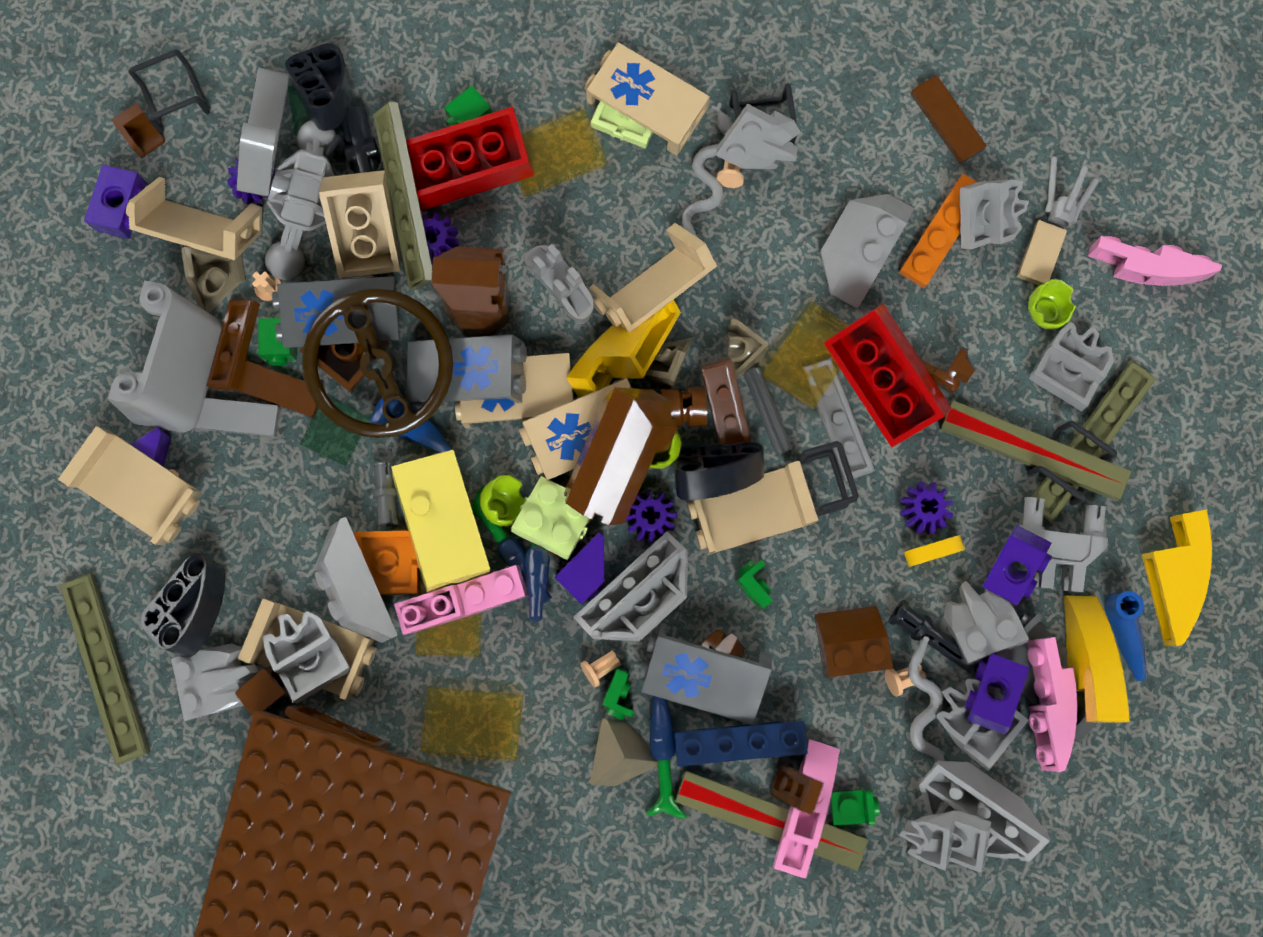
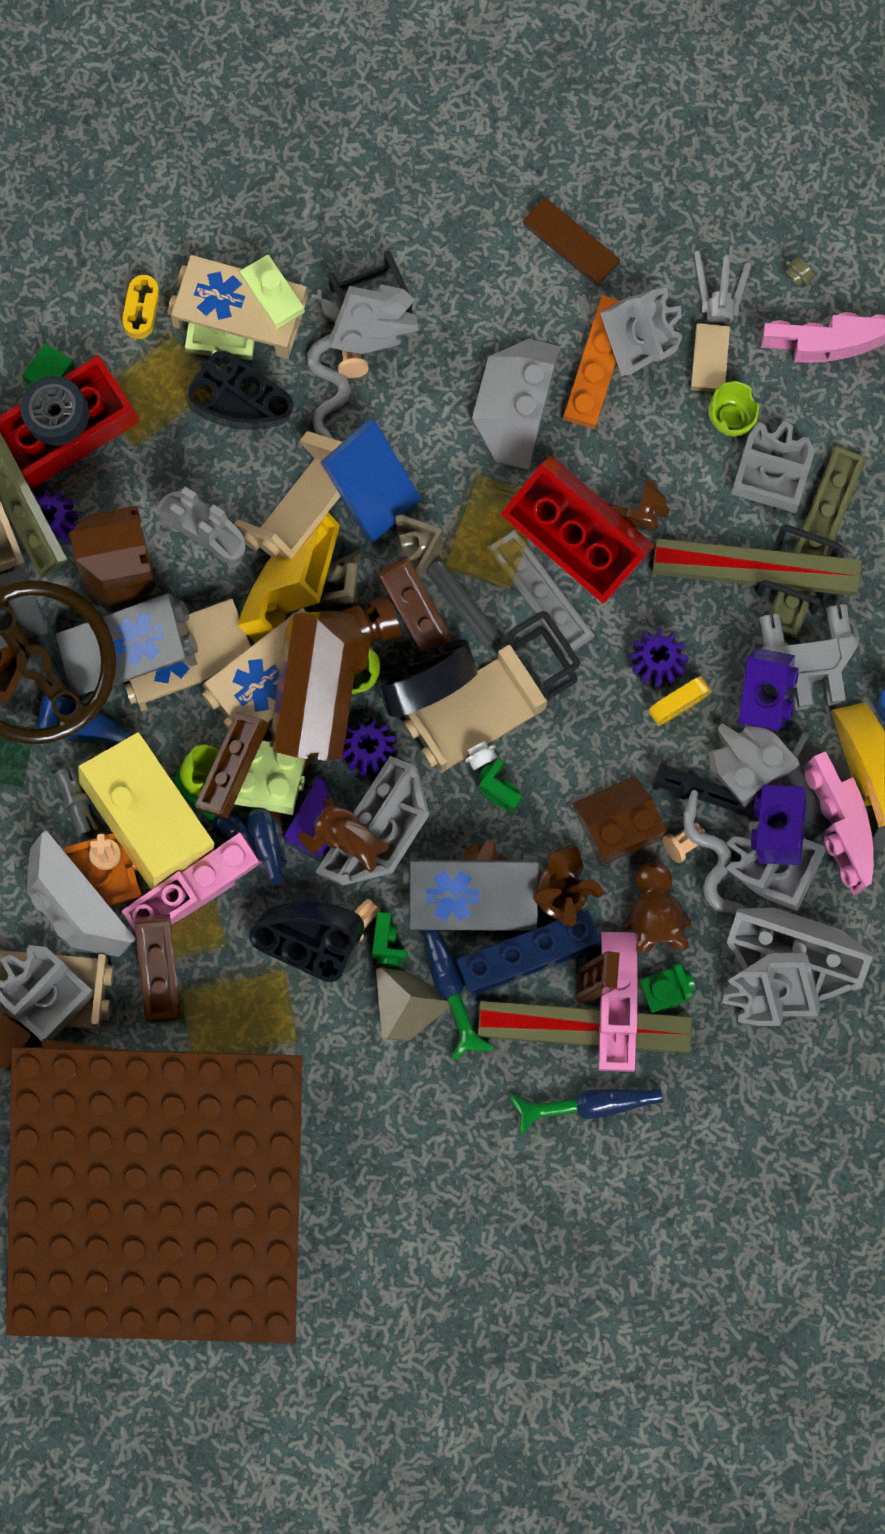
camera: 15 degrees left, 5 degrees down
(395, 547) = (104, 853): none -> light nougat piece
(411, 663) = (157, 967): none -> reddish brown tile
(446, 139) = (38, 406): none -> wheel
(525, 502) = (232, 765): none -> reddish brown tile
(551, 673) = (315, 927): none -> black beam
(558, 74) = (147, 308): none -> yellow beam
(604, 591) = (341, 829): none -> reddish brown hair
(614, 180) = (229, 404): none -> black beam
(678, 92) = (272, 291): none -> yellowish green tile
(718, 281) = (370, 480): none -> blue tile
(747, 551) = (481, 755): none -> white plate
(755, 892) = (588, 1105): none -> dark blue piece
(783, 696) = (560, 890): none -> reddish brown animal
(862, 738) = (657, 913): none -> reddish brown animal
(1140, 198) = (799, 271): none -> olive plate

